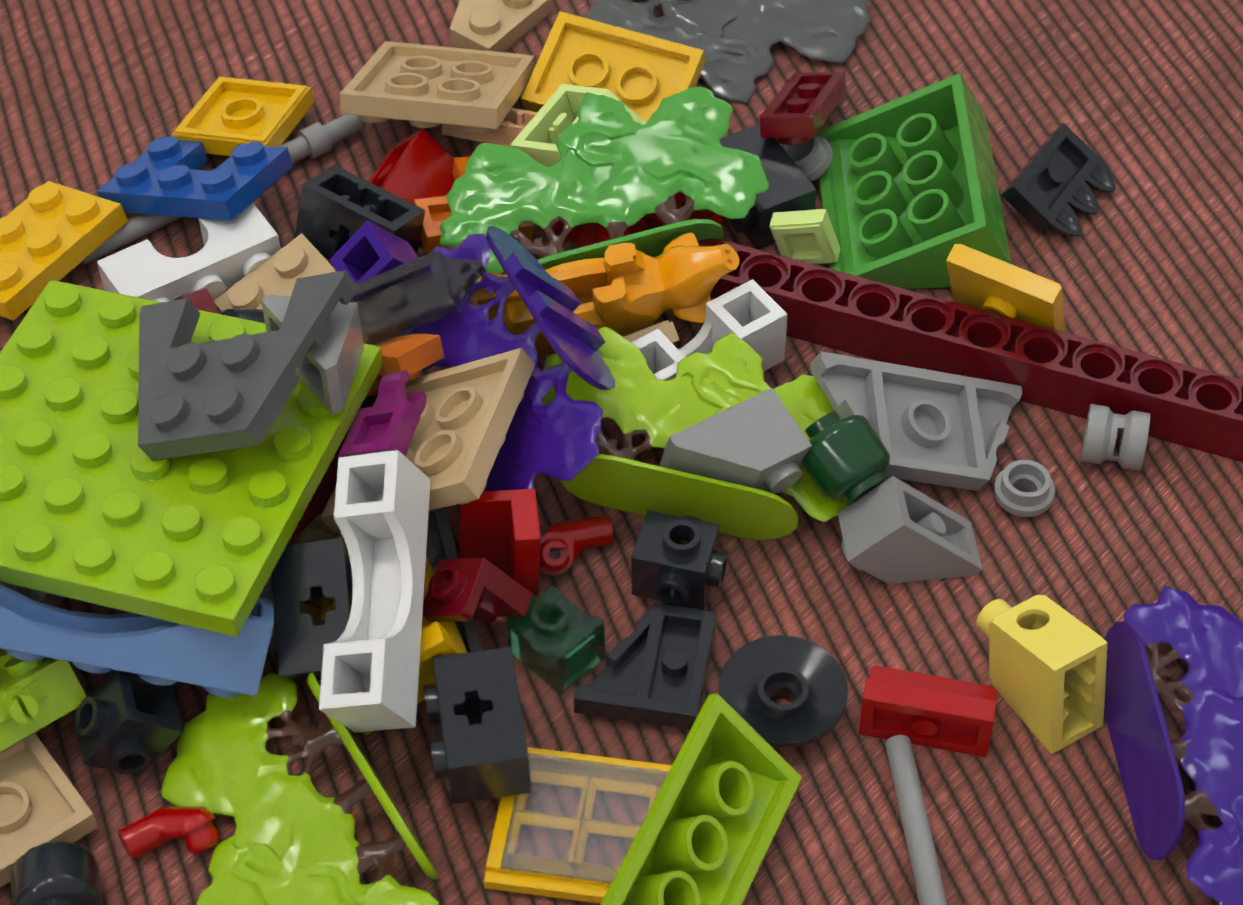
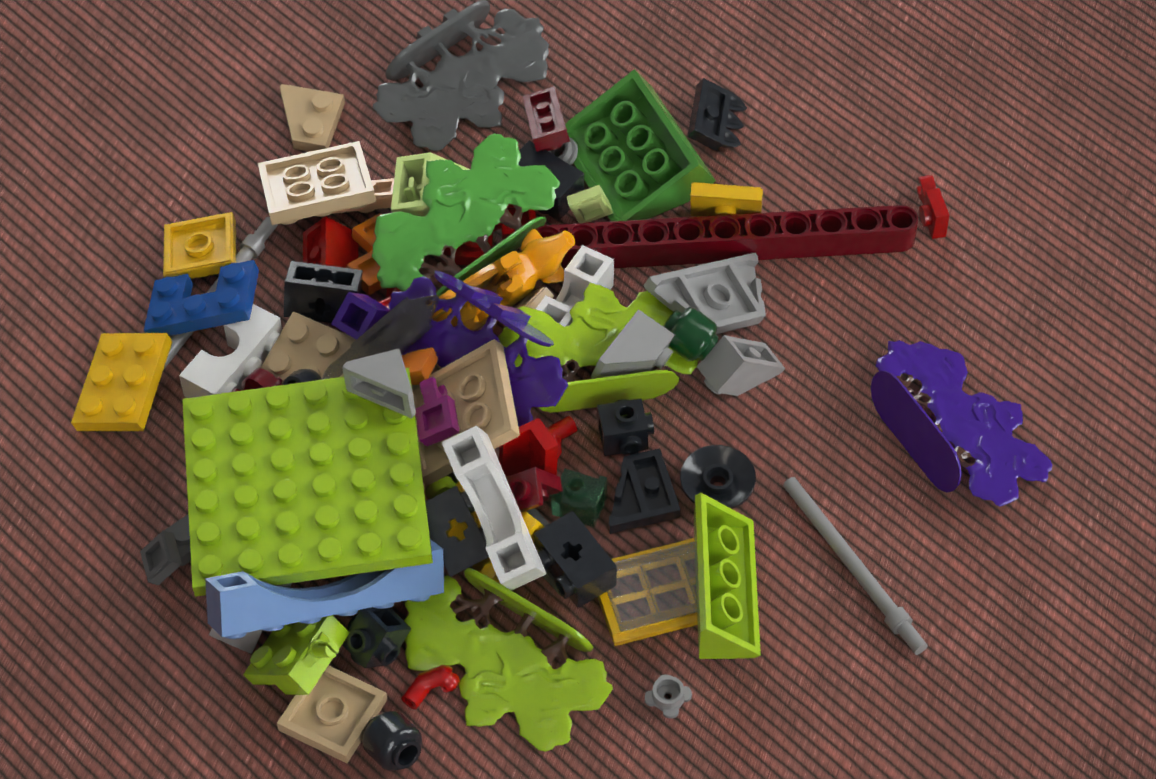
camera: 25 degrees left, 5 degrees up
(229, 388) = (350, 428): dark grey wing -> none
(608, 57) = (416, 130): yellow plate -> none
(928, 710) = (797, 458): red panel -> none
(1032, 480) = (786, 305): light grey plate -> none
(1046, 668) = (849, 411): light yellow torso -> none
(1102, 432) = (822, 264): light grey wheel -> none

